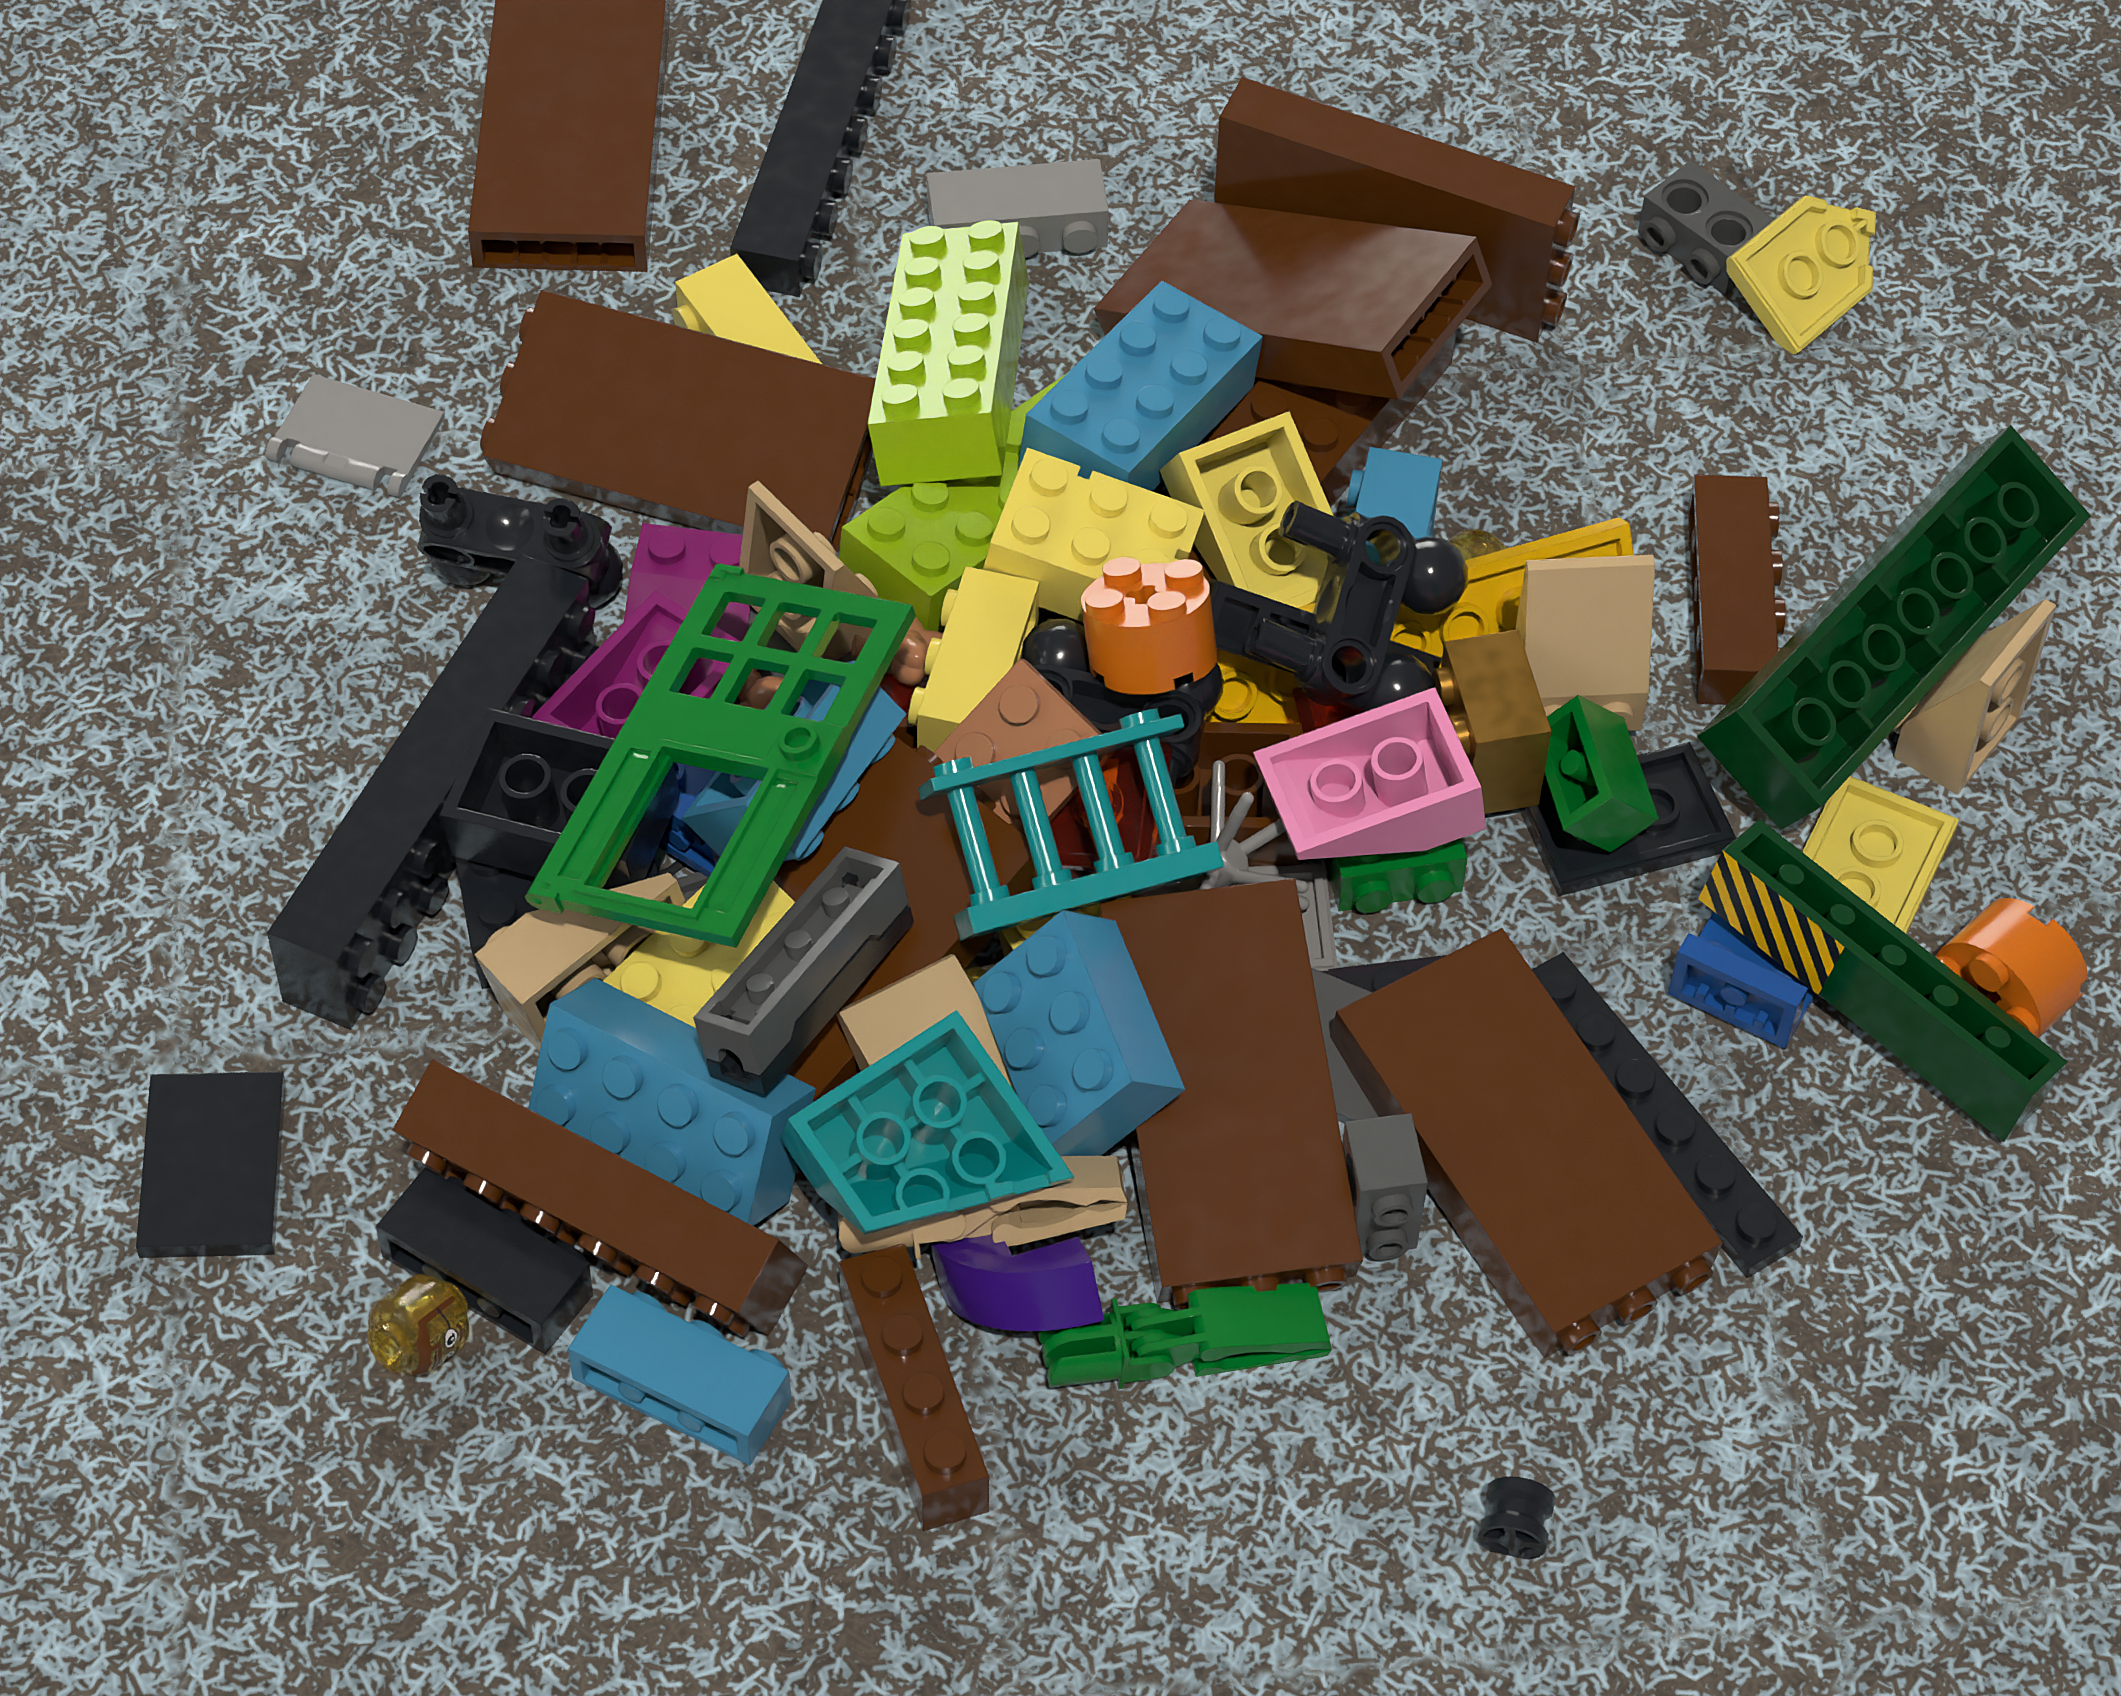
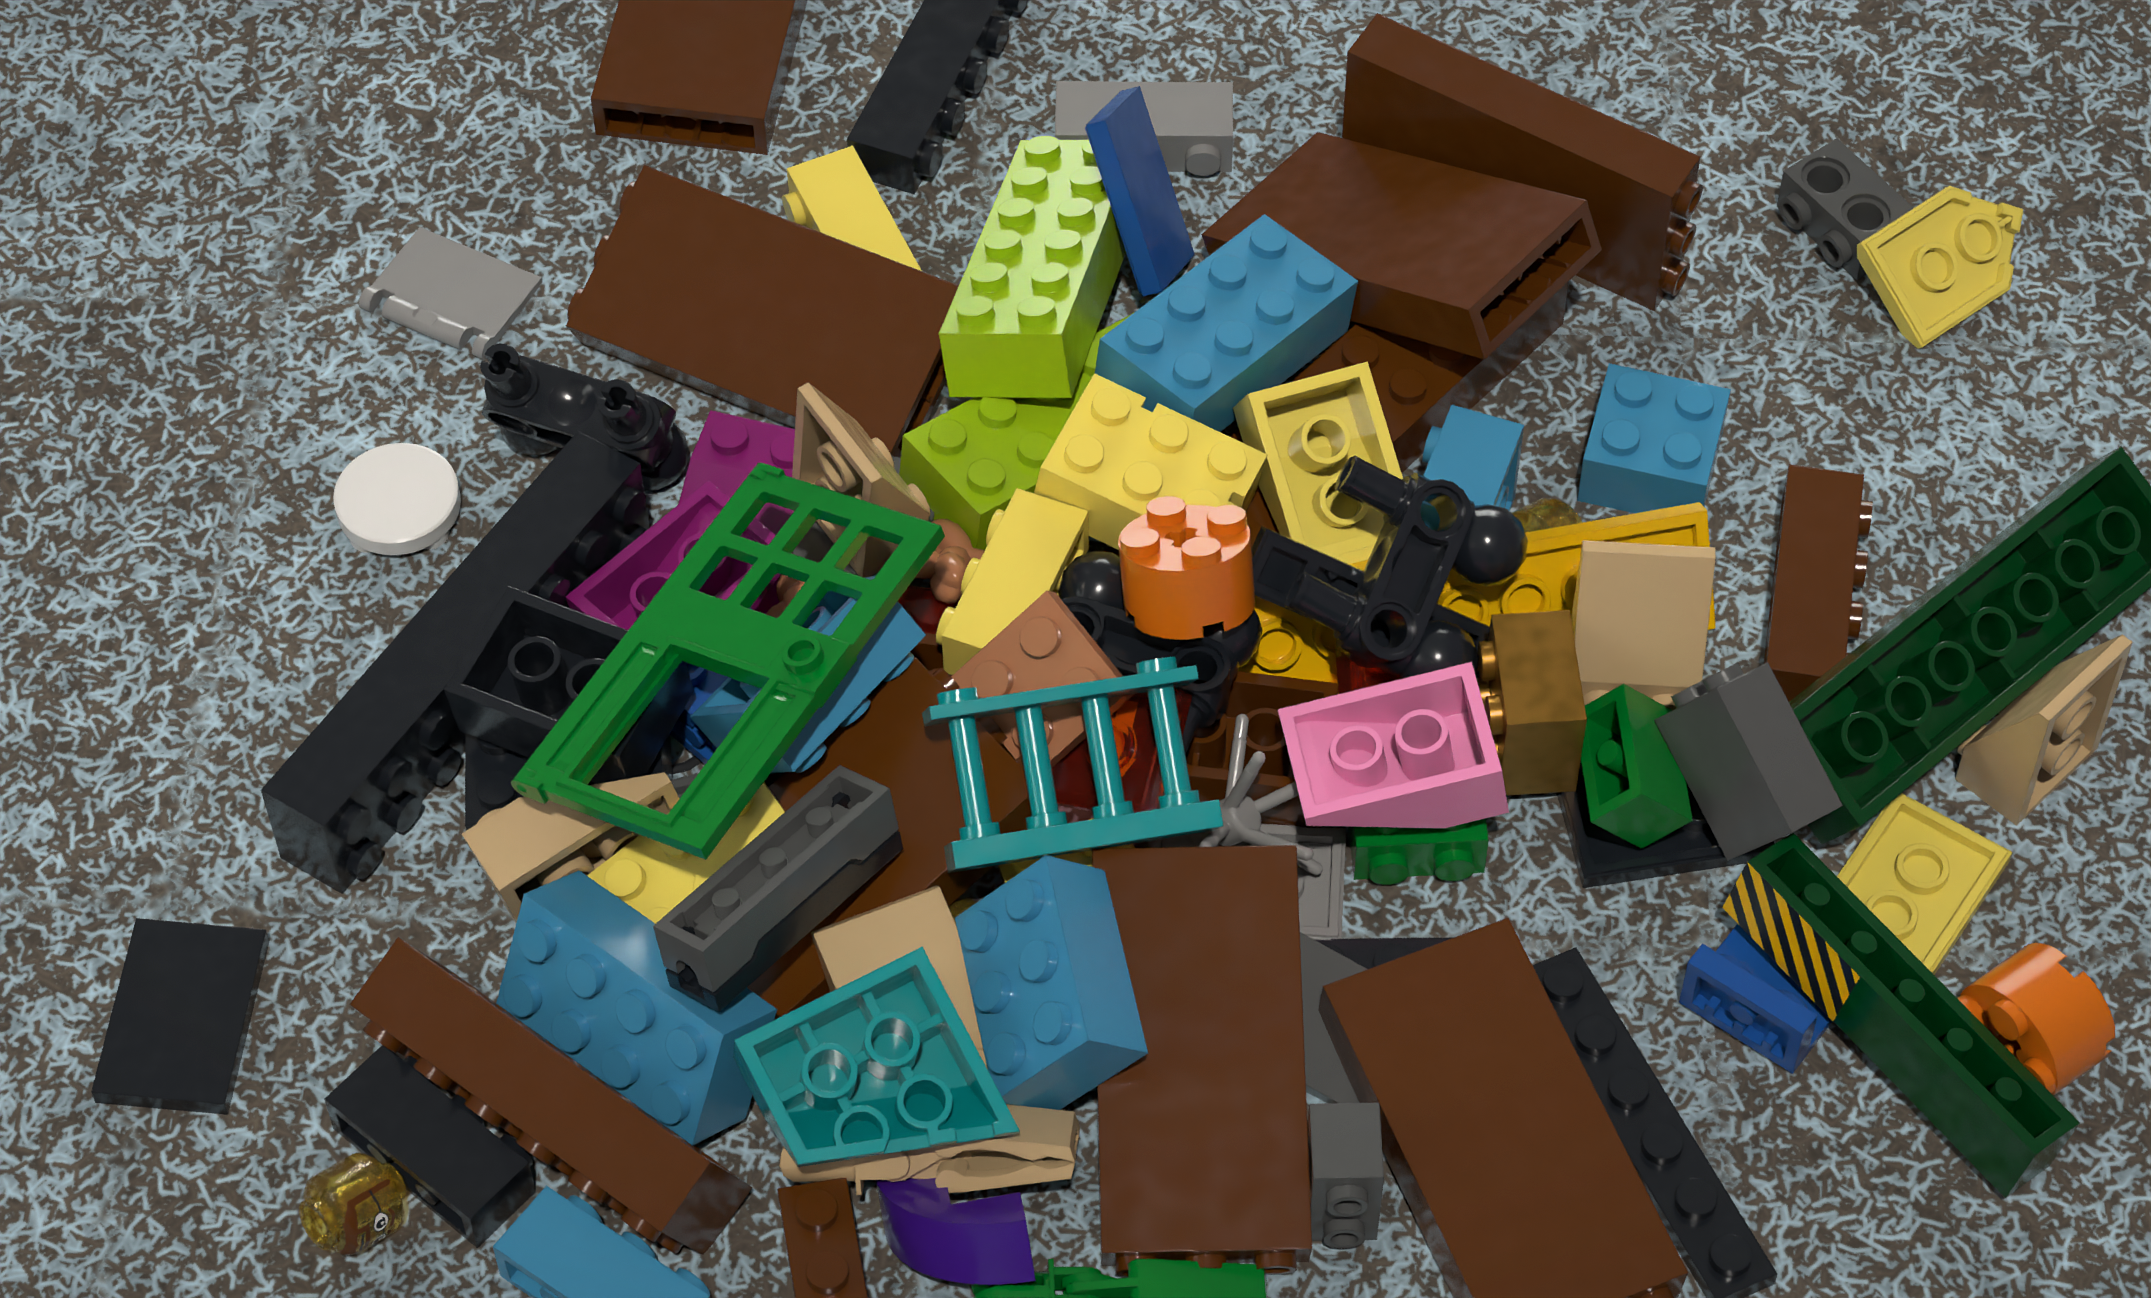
camera: 10 degrees right, 0 degrees up
(339, 642) = (397, 499): none -> white tile
(1031, 271) = (1140, 191): none -> blue tile
(1559, 465) = (1652, 441): none -> dark azure brick
(1705, 754) = (1746, 759): none -> dark grey brick

